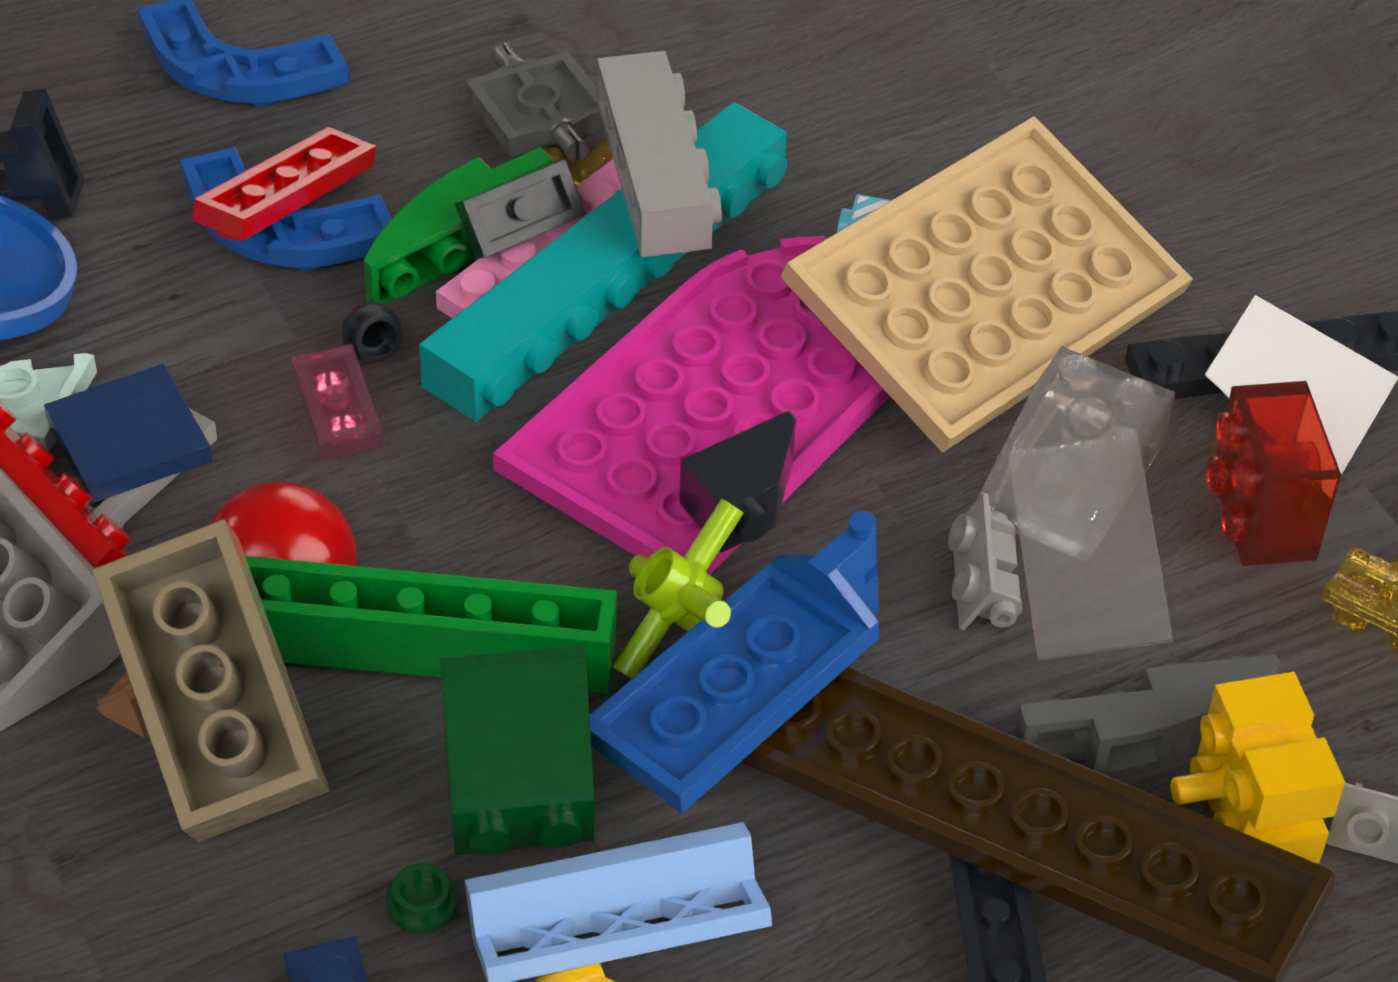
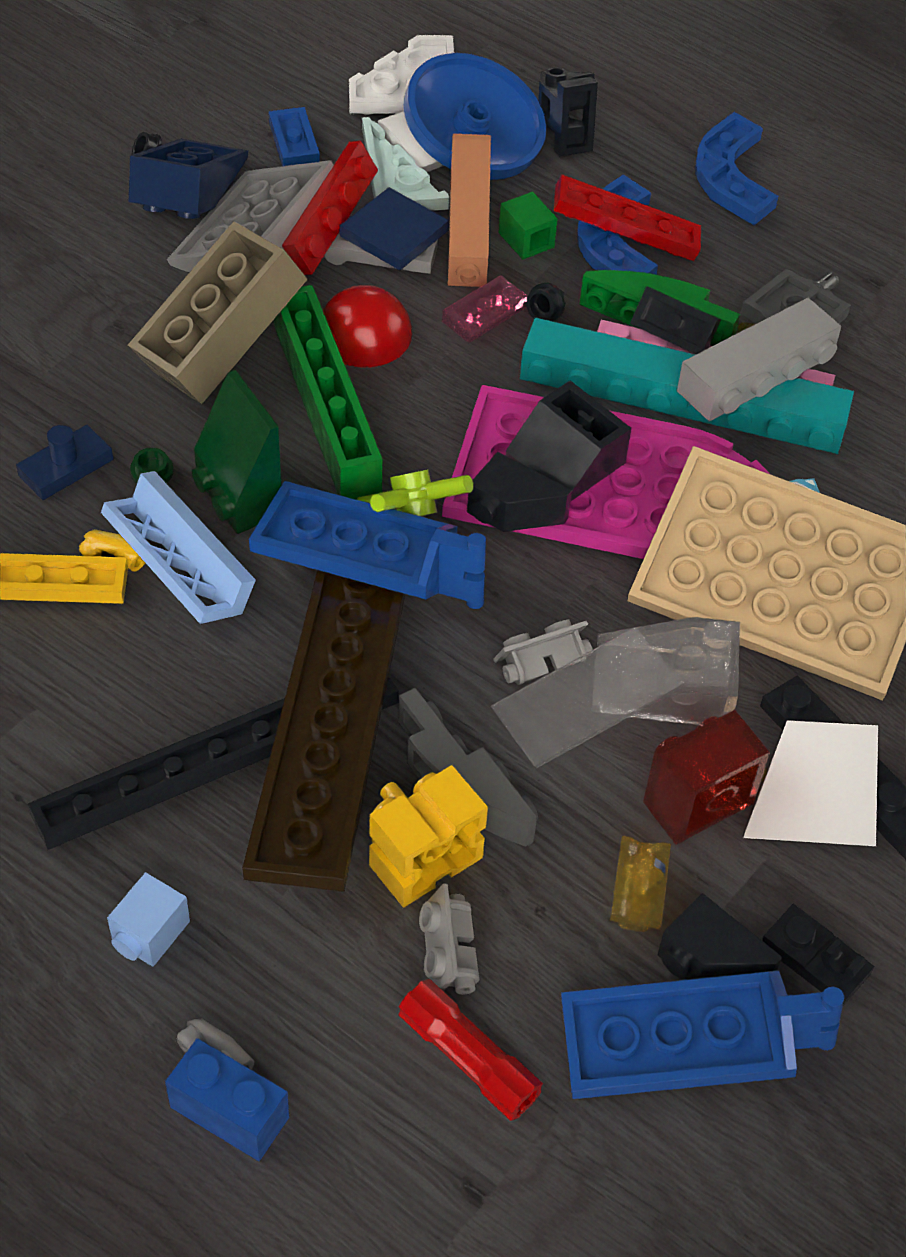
camera: 65 degrees right, 5 degrees up
(136, 324) = (469, 210): none -> nougat slope
(204, 295) = (527, 225): none -> green brick
(687, 383) = (571, 440): none -> black slope

